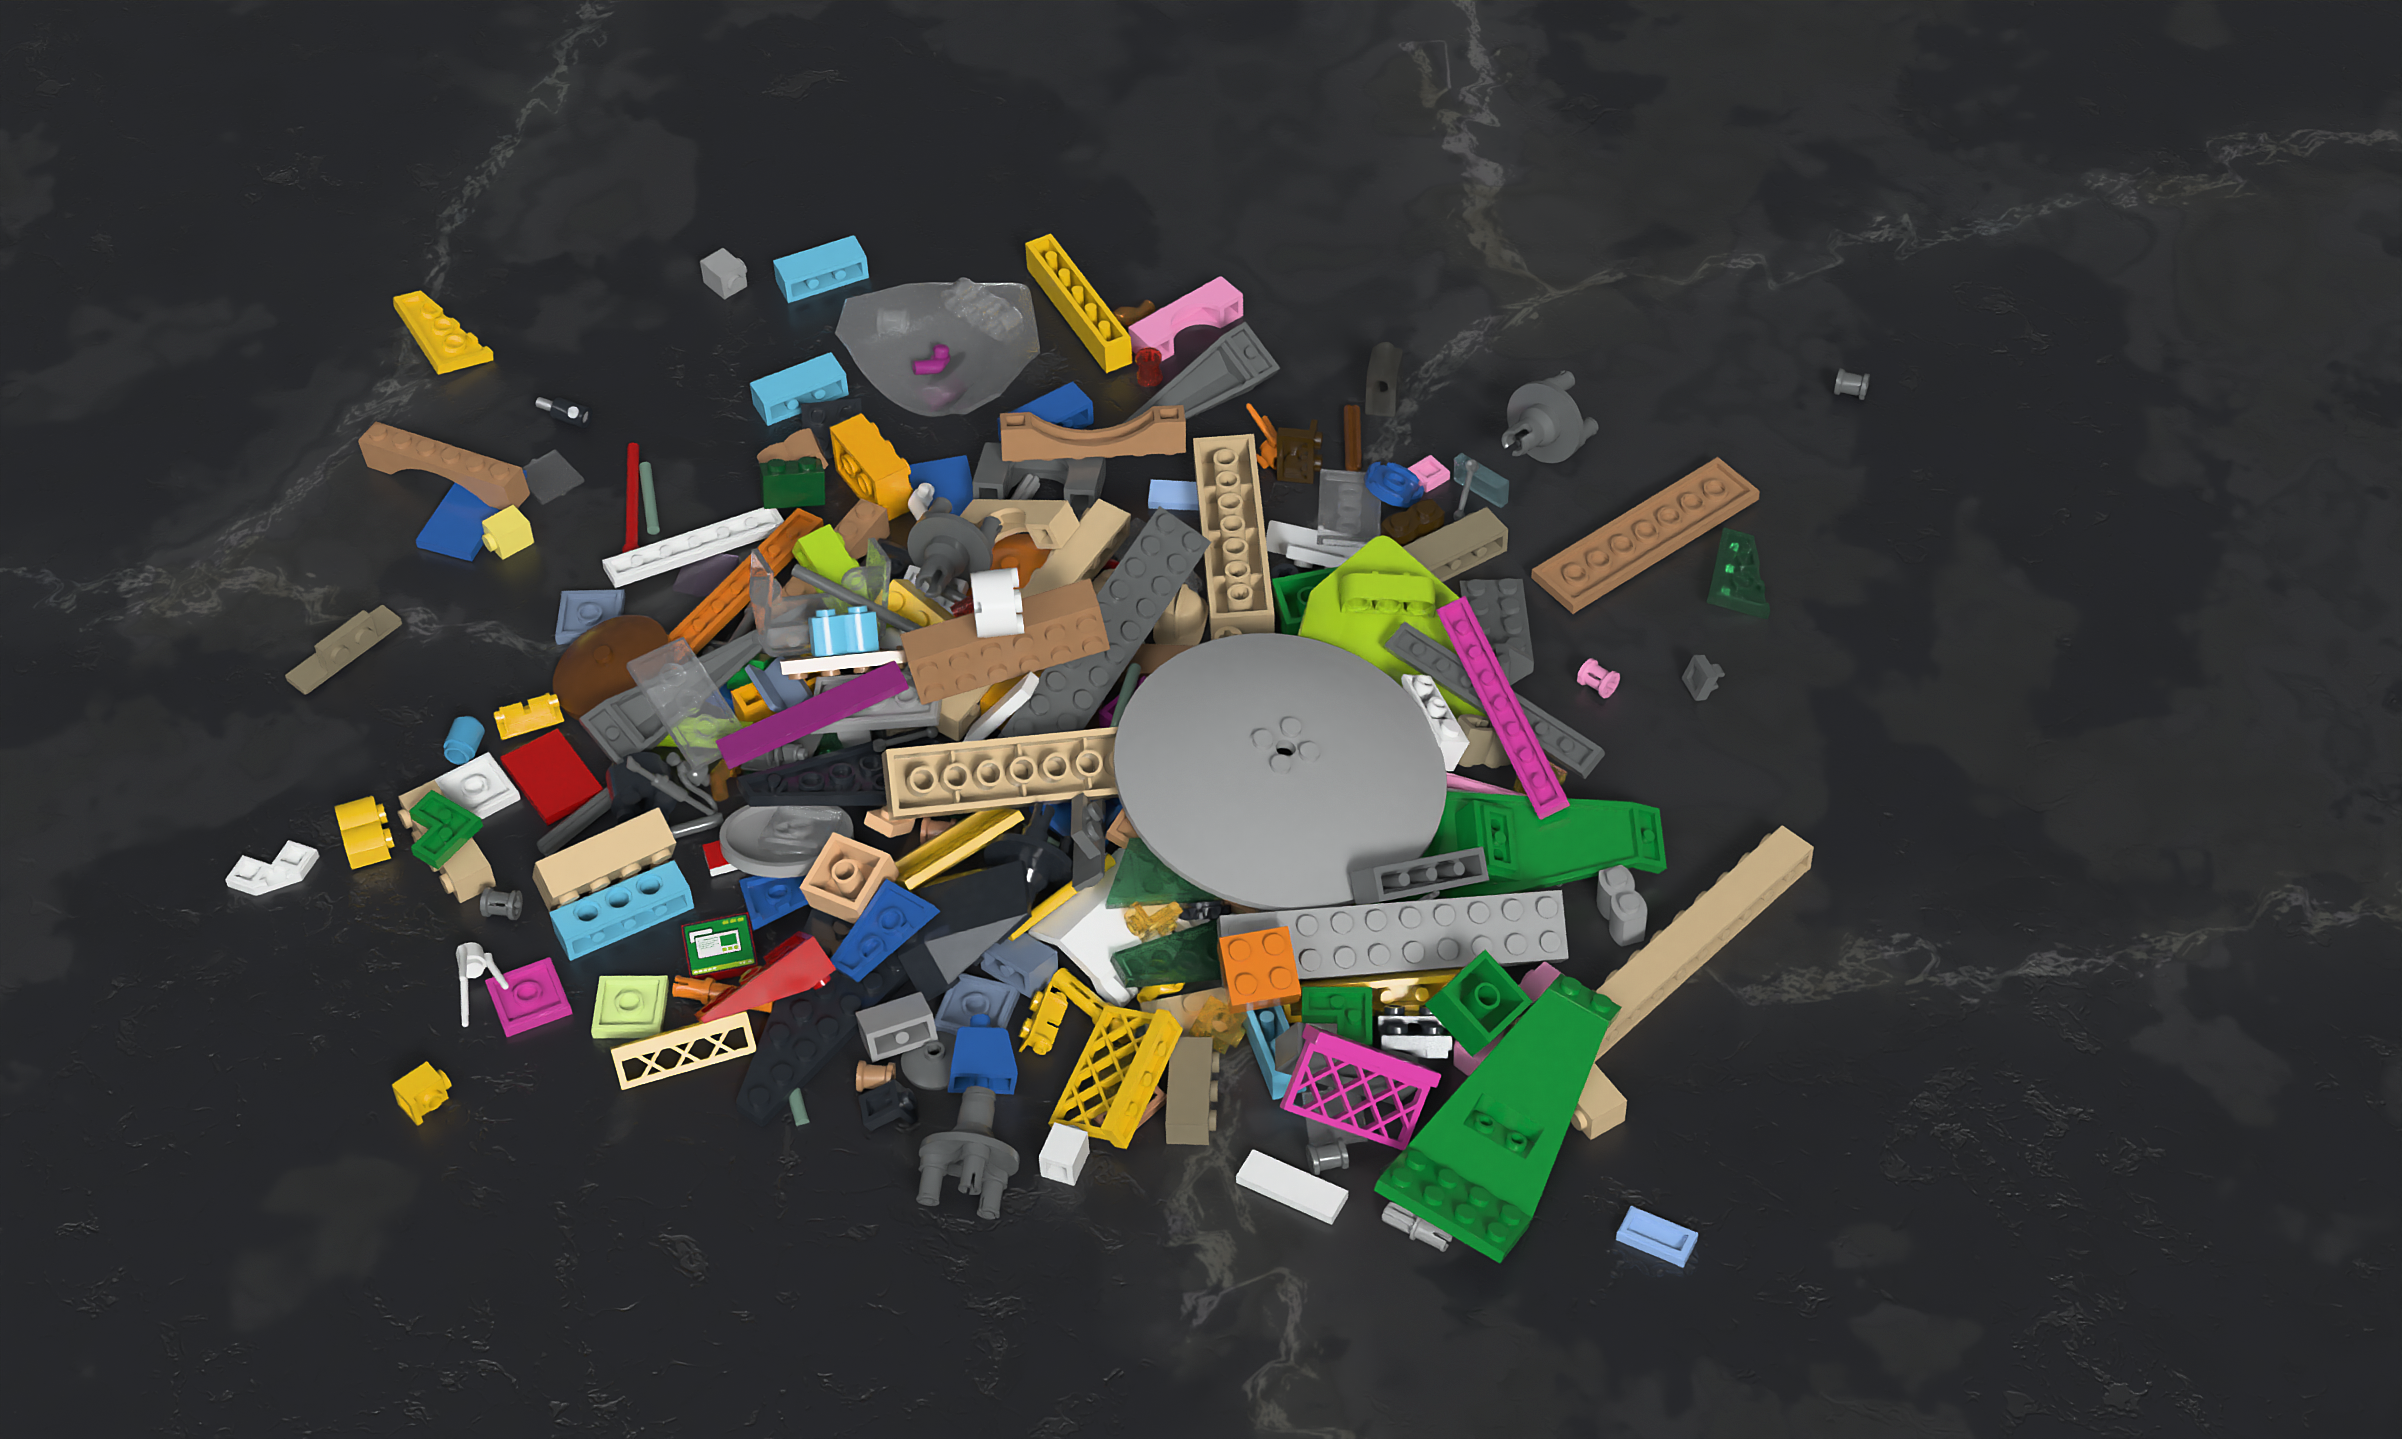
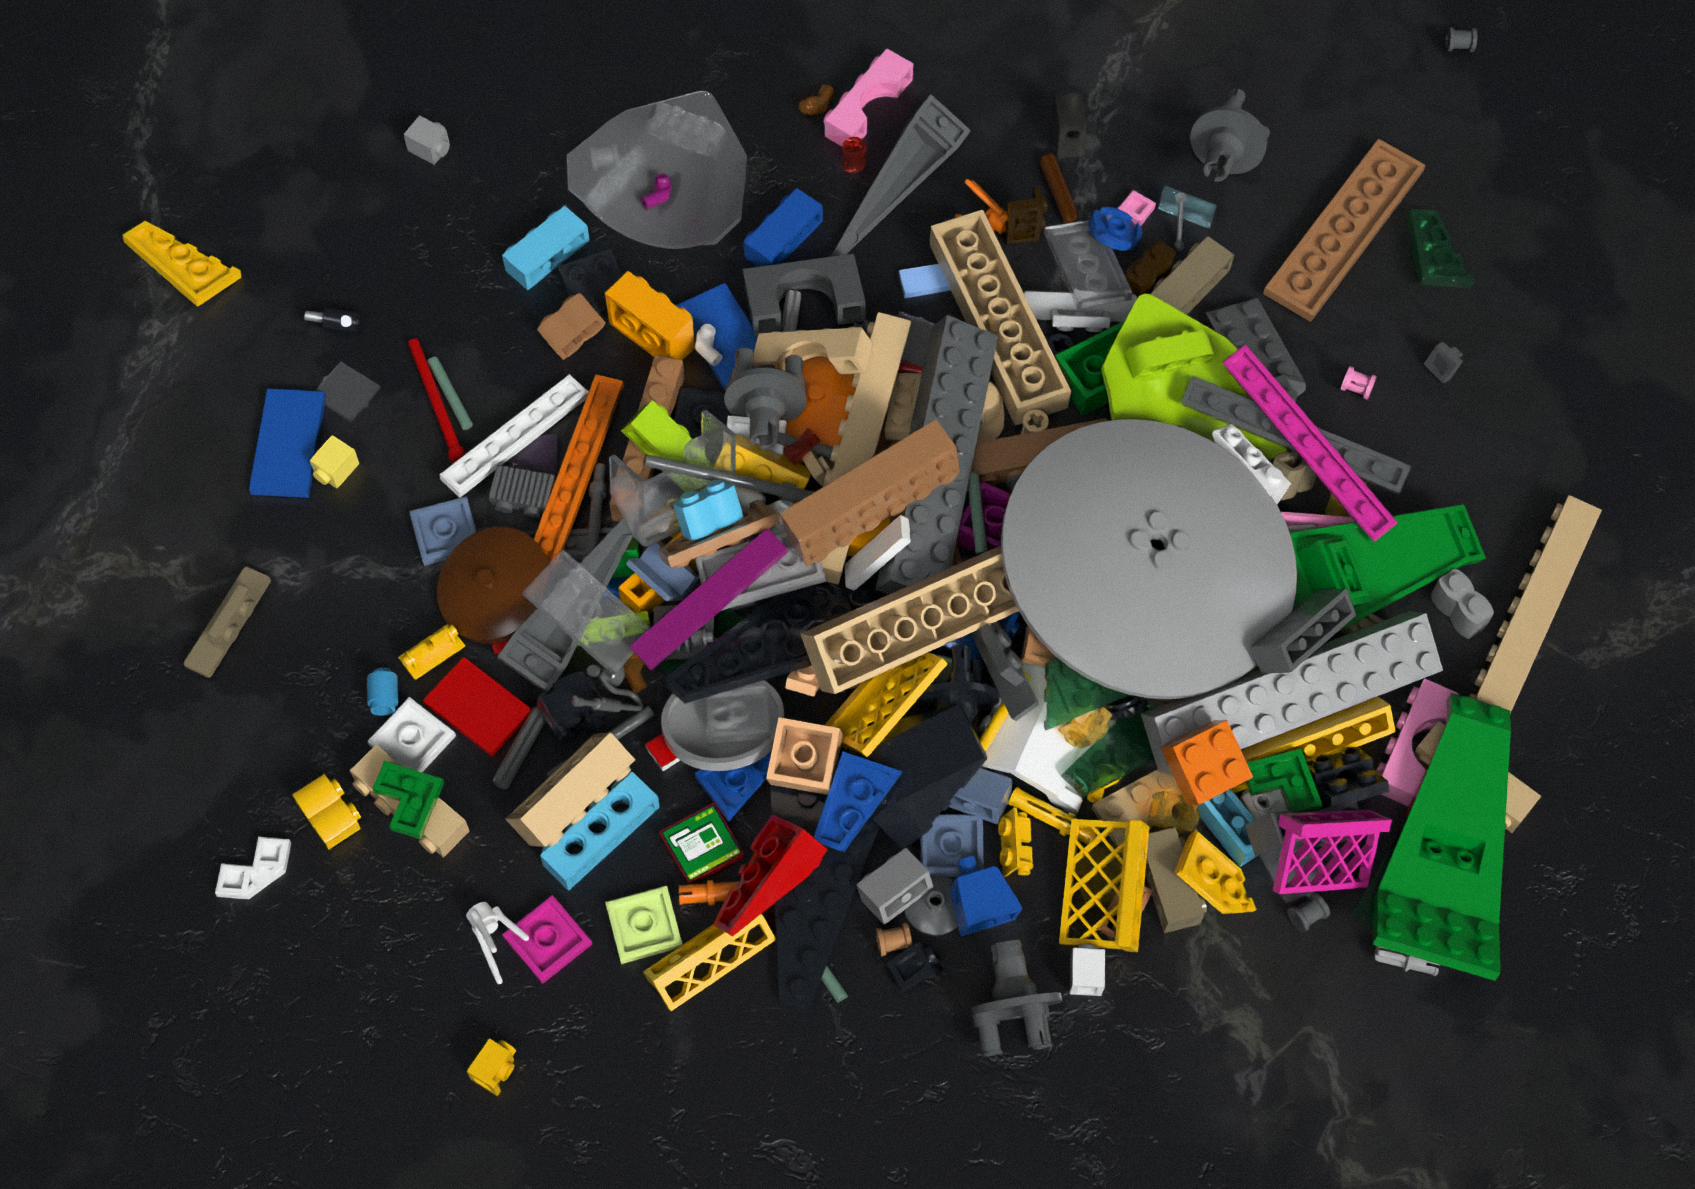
camera: 20 degrees left, 15 degrees up
(489, 479) = (296, 413): medium nougat arch -> none
(511, 904) = (486, 852): dark grey bush -> none
(675, 592) = (521, 490): none -> dark grey brick
(792, 483) = (582, 352): dark green brick -> none
(821, 269) = (515, 115): medium azure brick -> none
(880, 745) = (773, 607): dark grey hinge -> none
(997, 603) = (869, 470): white brick -> none
(1079, 303) = (768, 103): yellow brick -> none
(1154, 432) = (895, 229): medium nougat arch -> none
(1236, 1095) = (1213, 875): none -> yellow tile
(1292, 1186) = (1287, 948): white tile -> none
(1478, 1003) = (1399, 743): green brick -> none
(1657, 1236) = (1601, 912): light blue tile -> none

